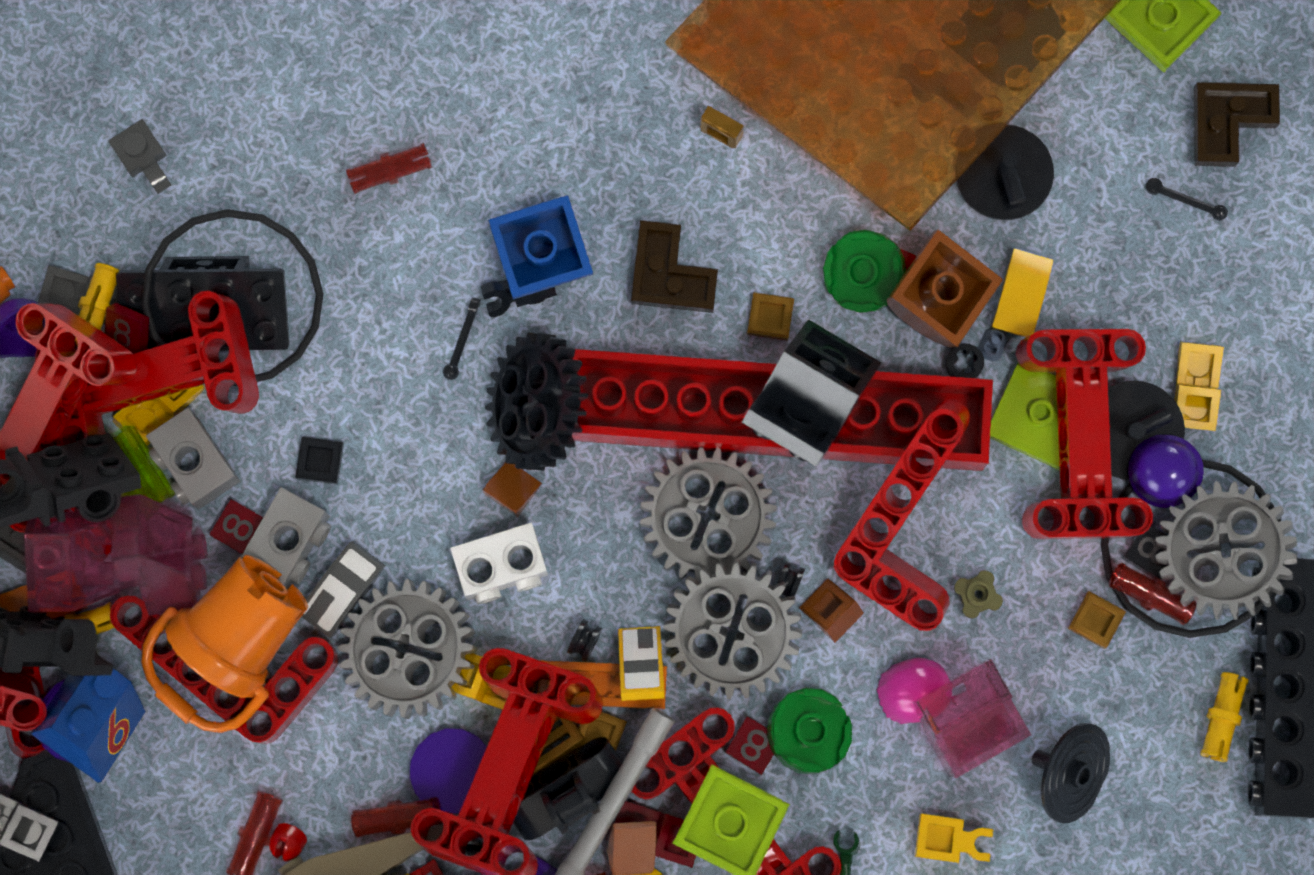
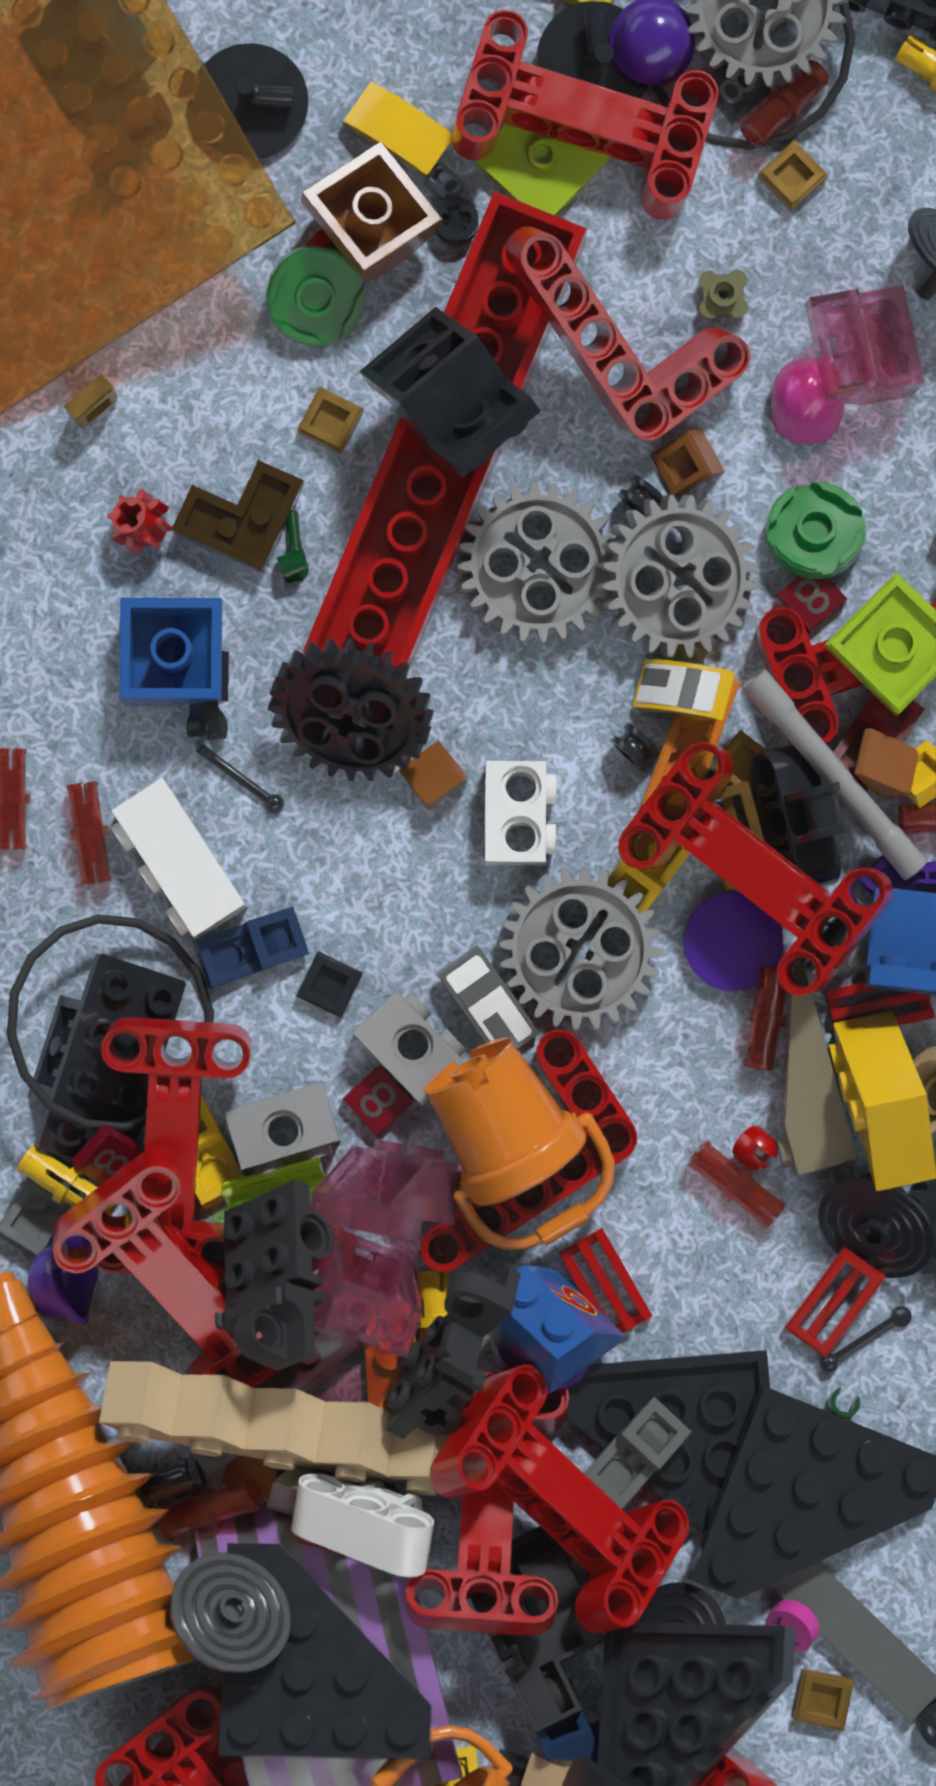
camera: 70 degrees left, 5 degrees up
(169, 728) = (583, 1246): none -> red tile
(330, 390) = (251, 947): none -> dark blue slope
(379, 309) = (176, 860): none -> white brick
(381, 236) = (89, 832): none -> clear red pin
(638, 194) = (139, 522): none -> red gear
(645, 325) = (293, 564): none -> dark green hand

